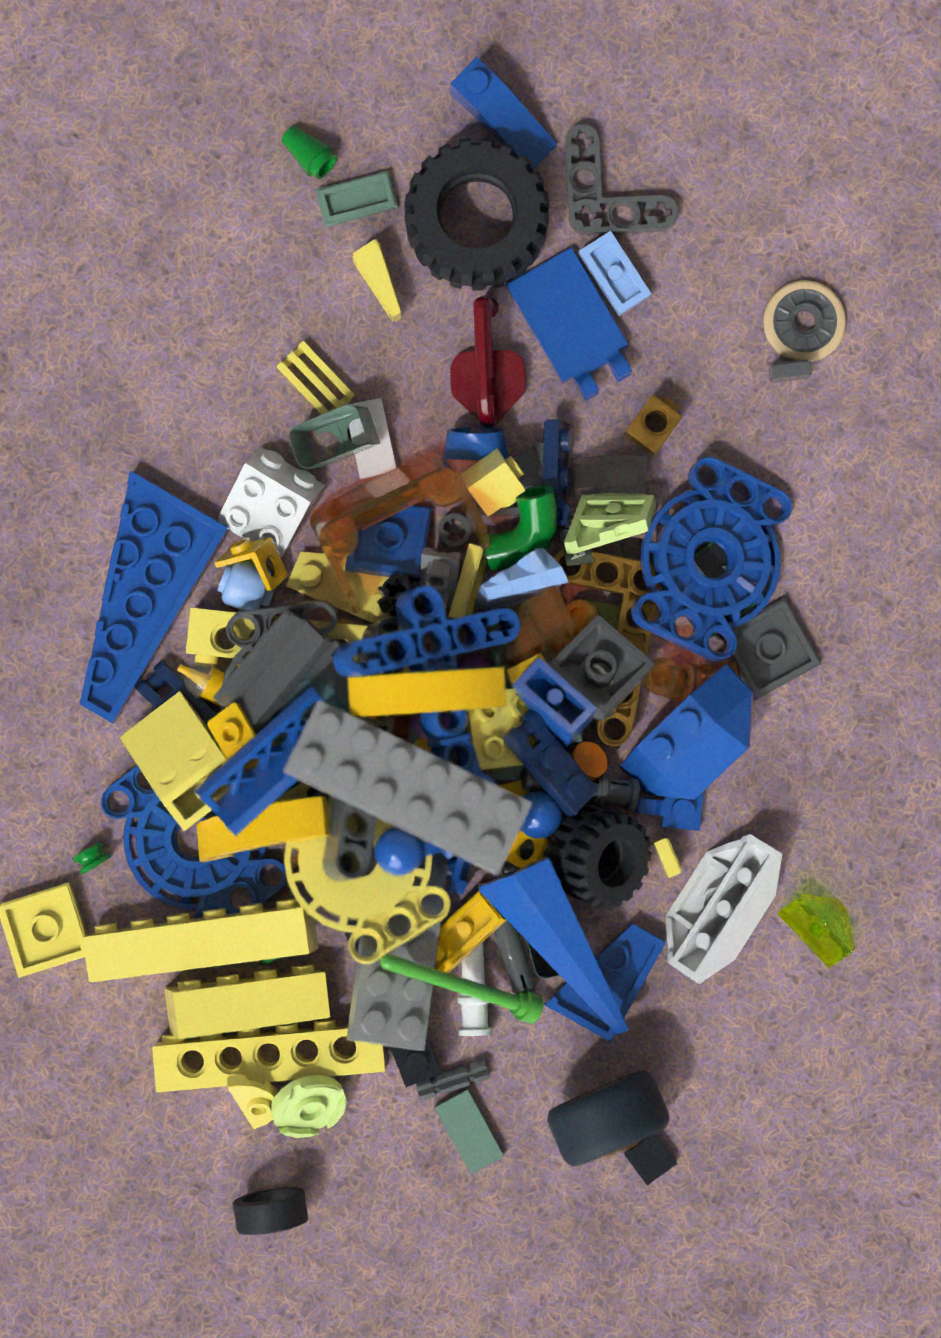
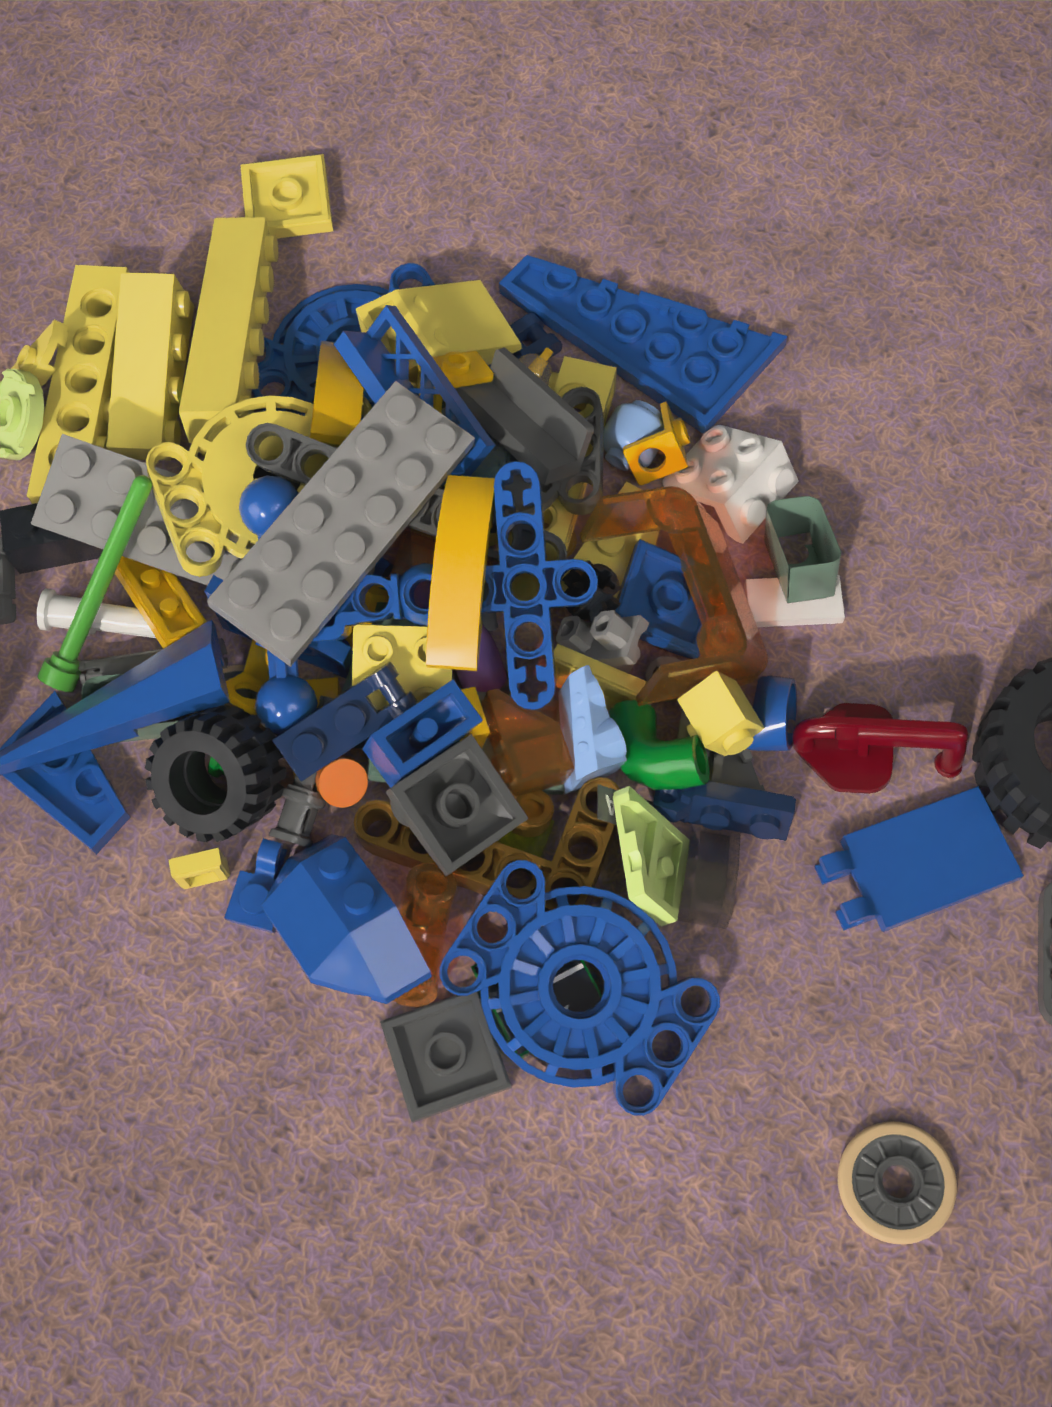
camera: 100 degrees right, 20 degrees down
(91, 857) = (353, 248): green bush -> none
(293, 358) = (901, 529): light yellow tile -> none
(374, 270) = (1005, 631): light yellow slope -> none
(614, 273) = (984, 926): light blue plate -> none
(644, 438) = (768, 921): pearl gold brick -> none
(721, 906) = (112, 923): white wedge -> none
(790, 371) = (827, 1143): dark grey tile -> none
(821, 925) = (60, 1063): clear neon green slope -> none

